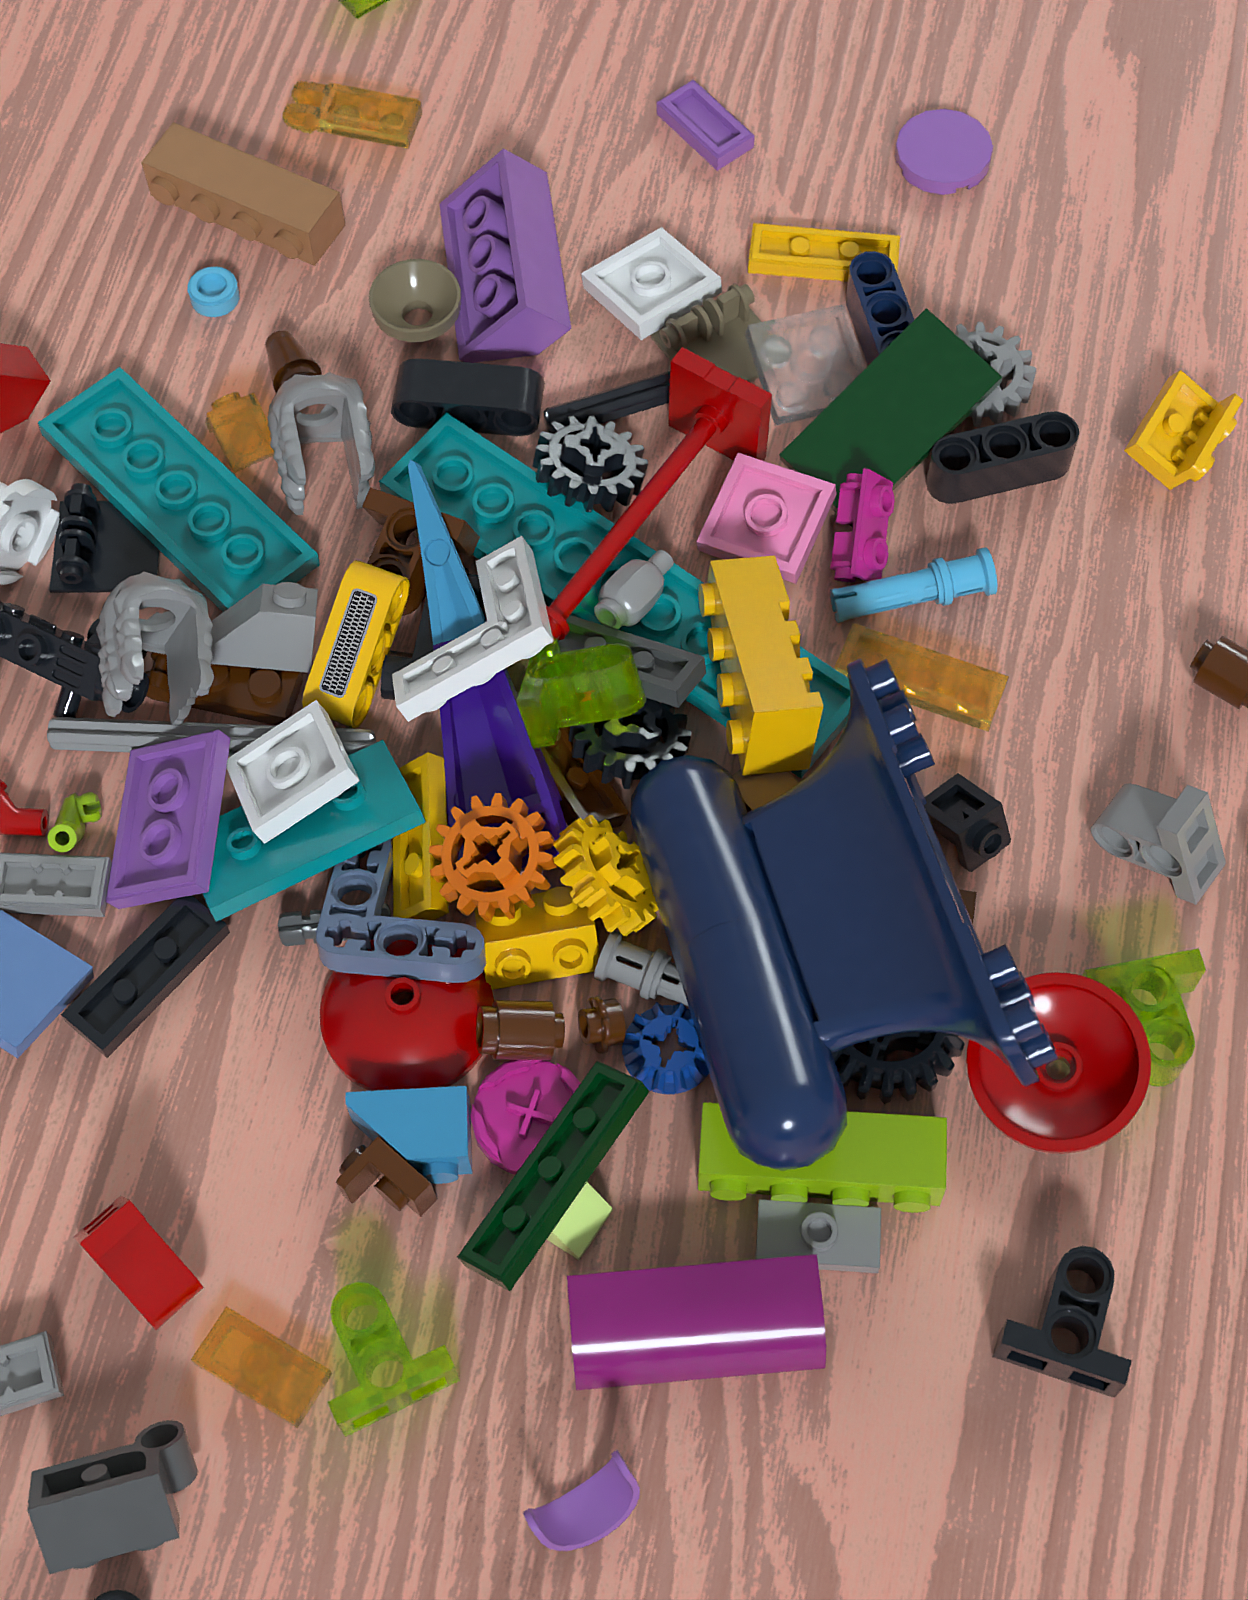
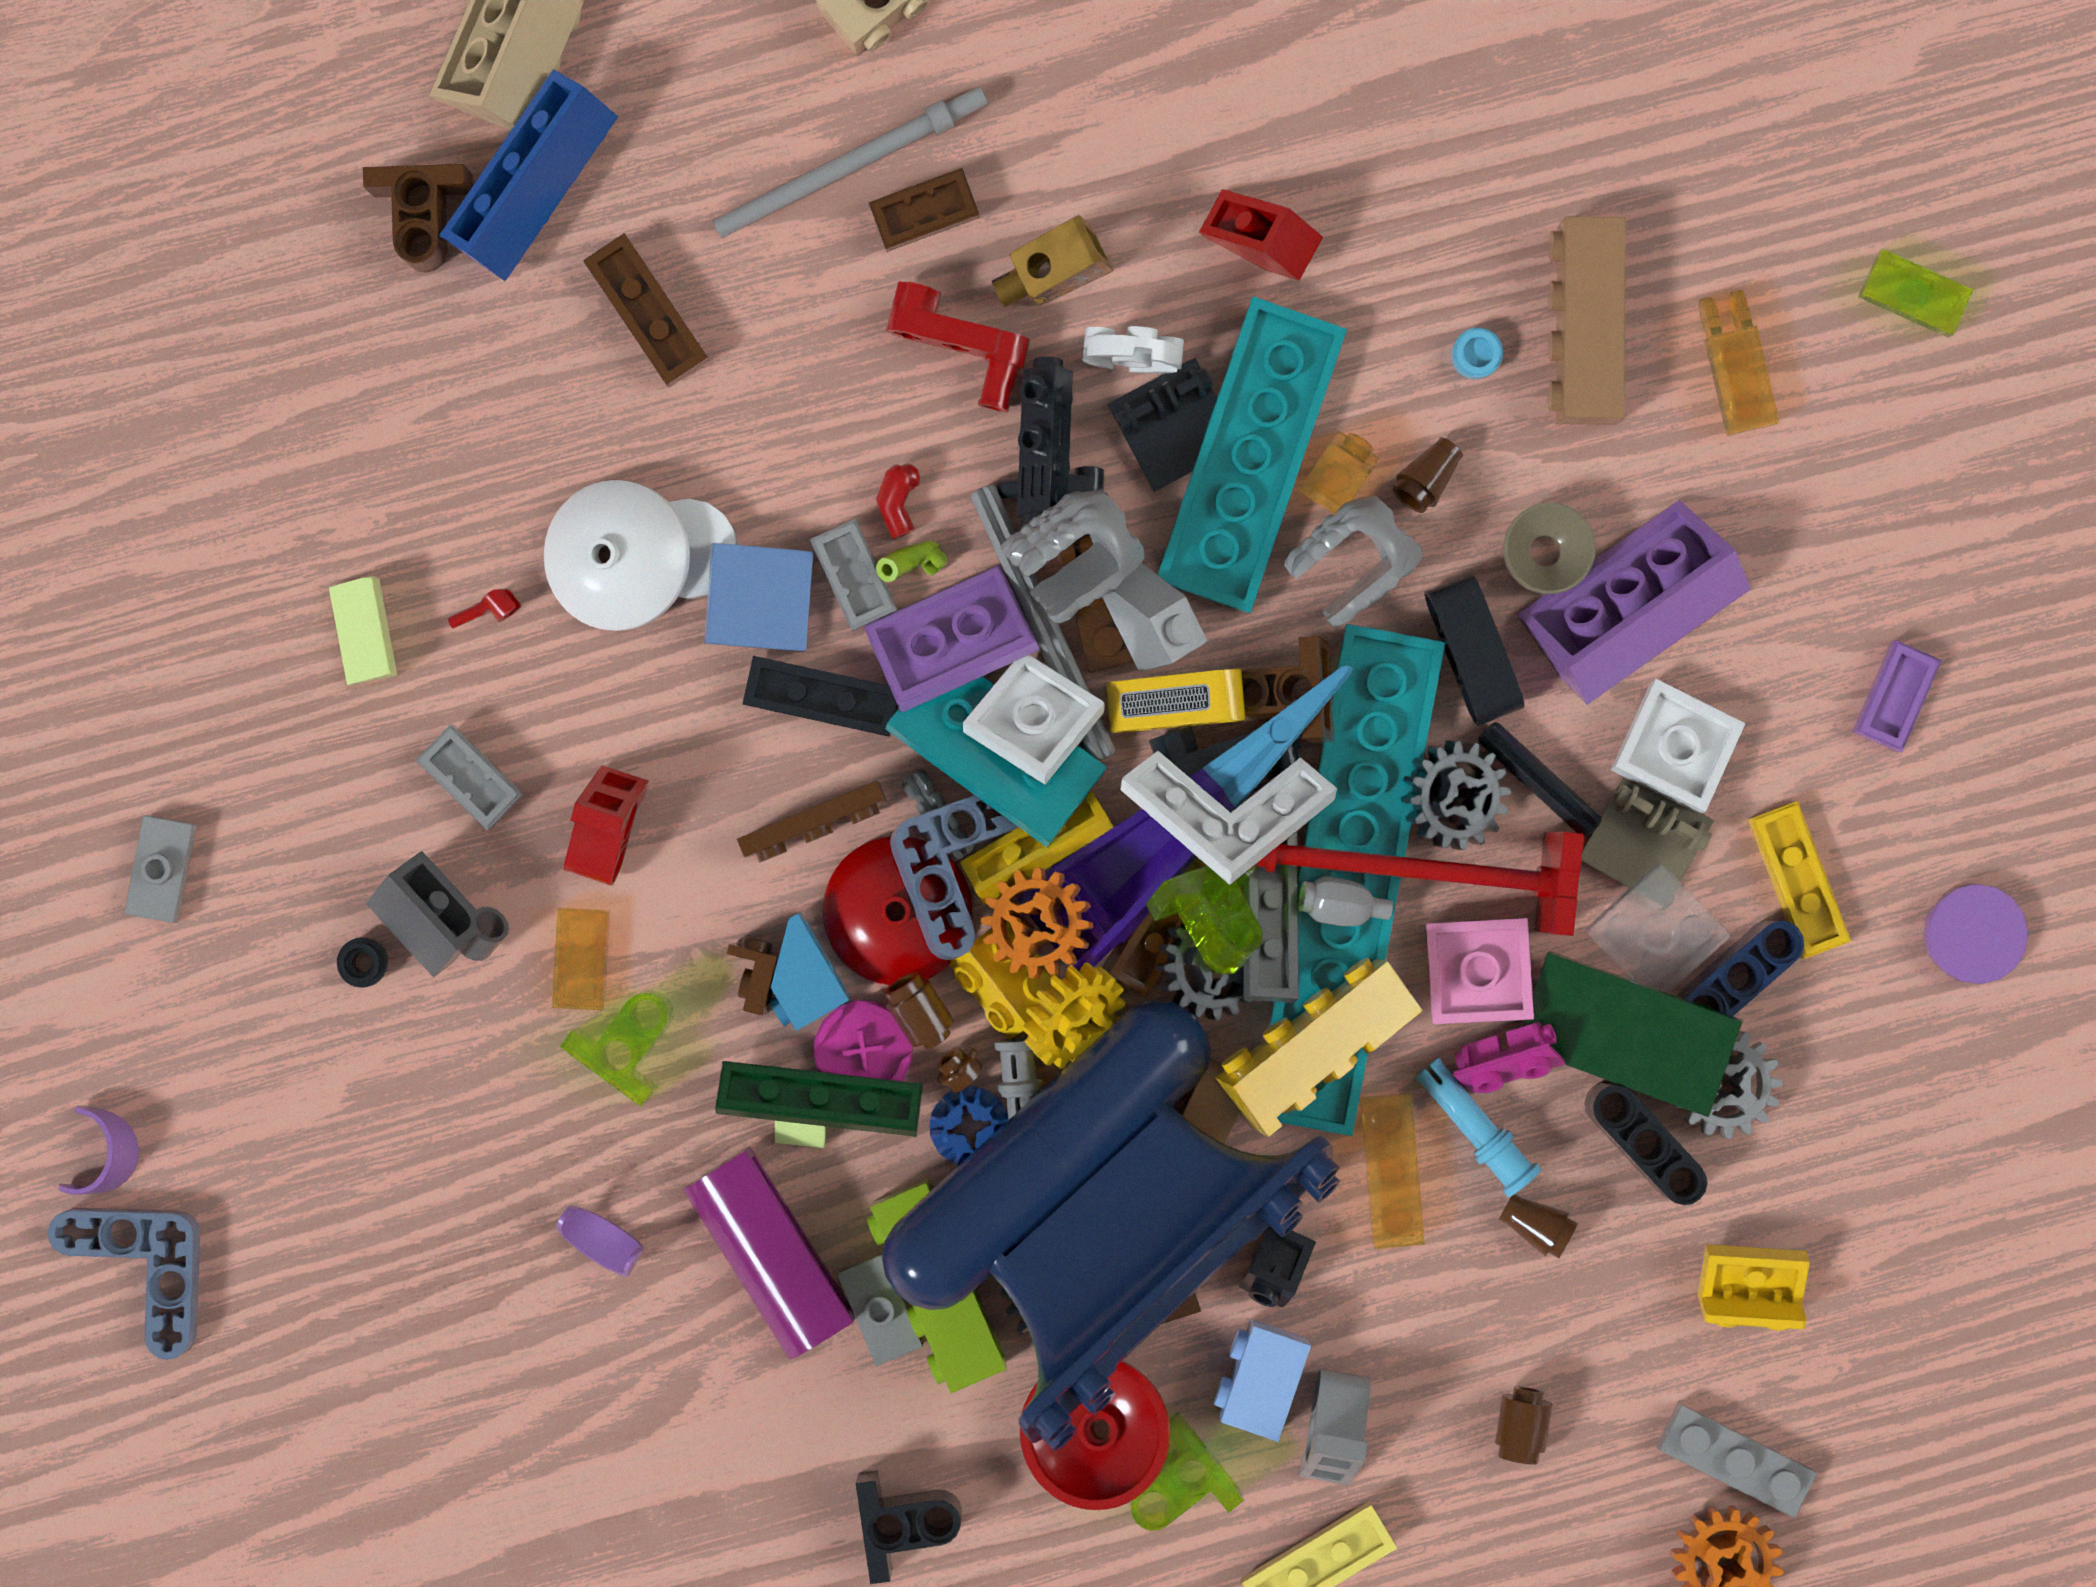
camera: 60 degrees right, 25 degrees up
(264, 1042) = (813, 823): none -> reddish brown plate
(1040, 575) = (1539, 1224): none -> reddish brown cone
(1077, 883) = (1262, 1379): none -> light blue brick

